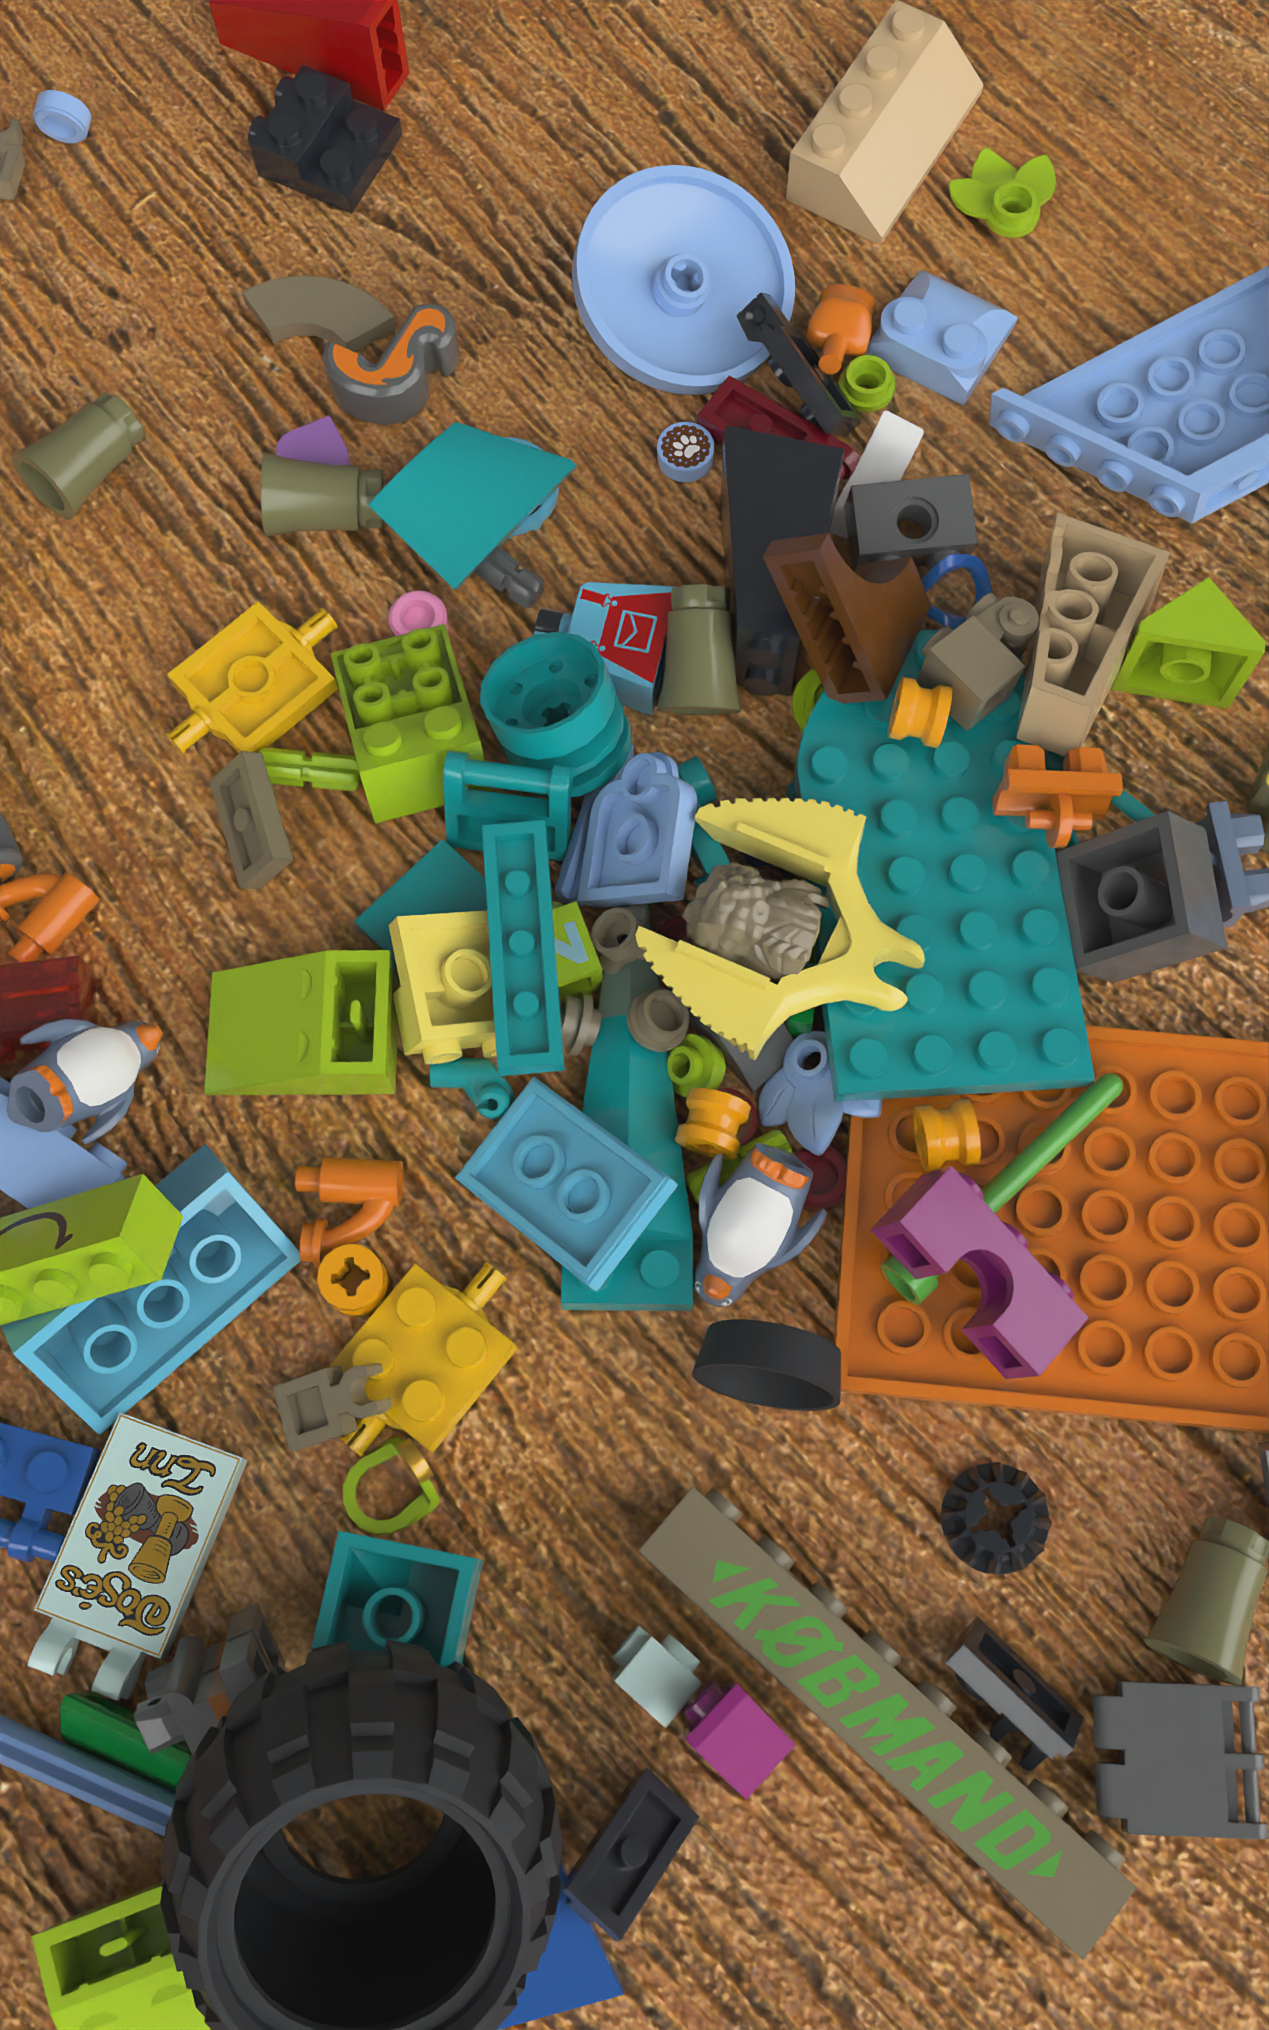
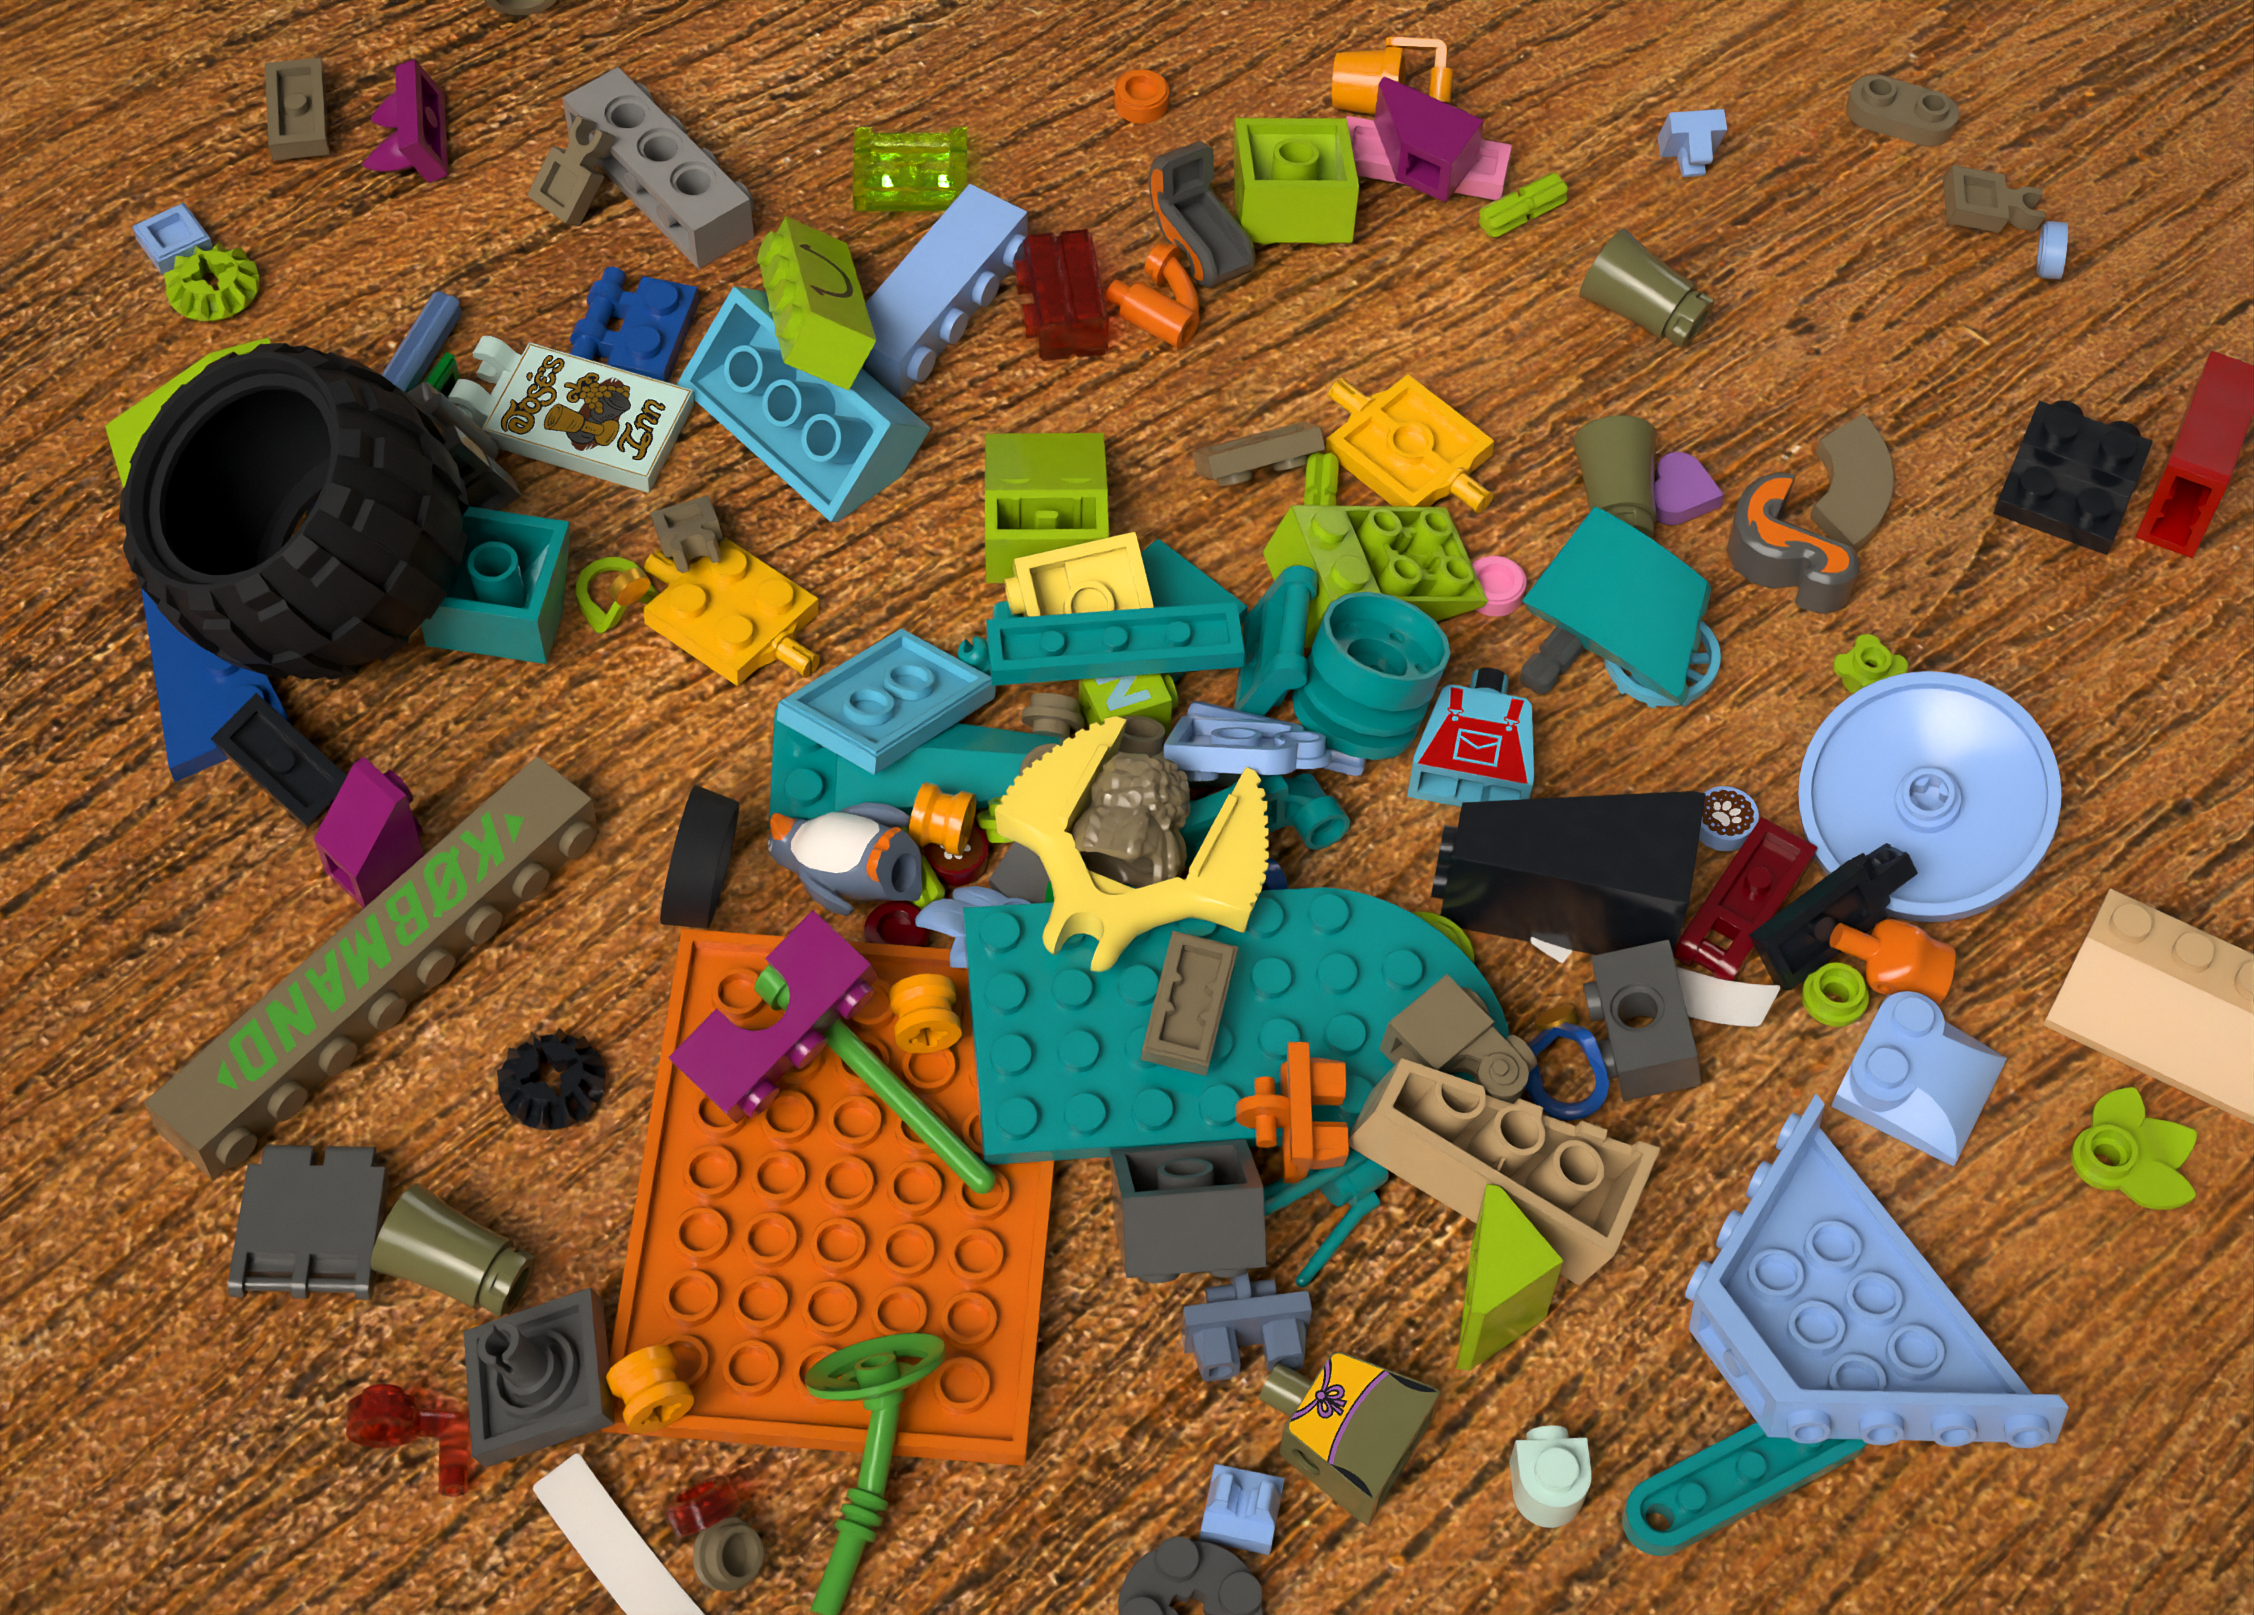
camera: 85 degrees right, 15 degrees down
(81, 1074) = (993, 330): animal -> none
(348, 1181) = (898, 553): orange plant -> none
(357, 1293) = (804, 550): light orange wheel -> none
(531, 333) = (1868, 650): none -> lime plate
(656, 1674) = (436, 783): light aqua plate -> none
(699, 653) = (1427, 801): olive plant -> none
(849, 614) = (1483, 929): reddish brown arch -> none
(920, 712) = (1382, 979): light orange wheel -> none
(950, 881) = (1189, 1003): none -> dark tan plate
(1016, 1692) = (388, 1076): black plate -> none

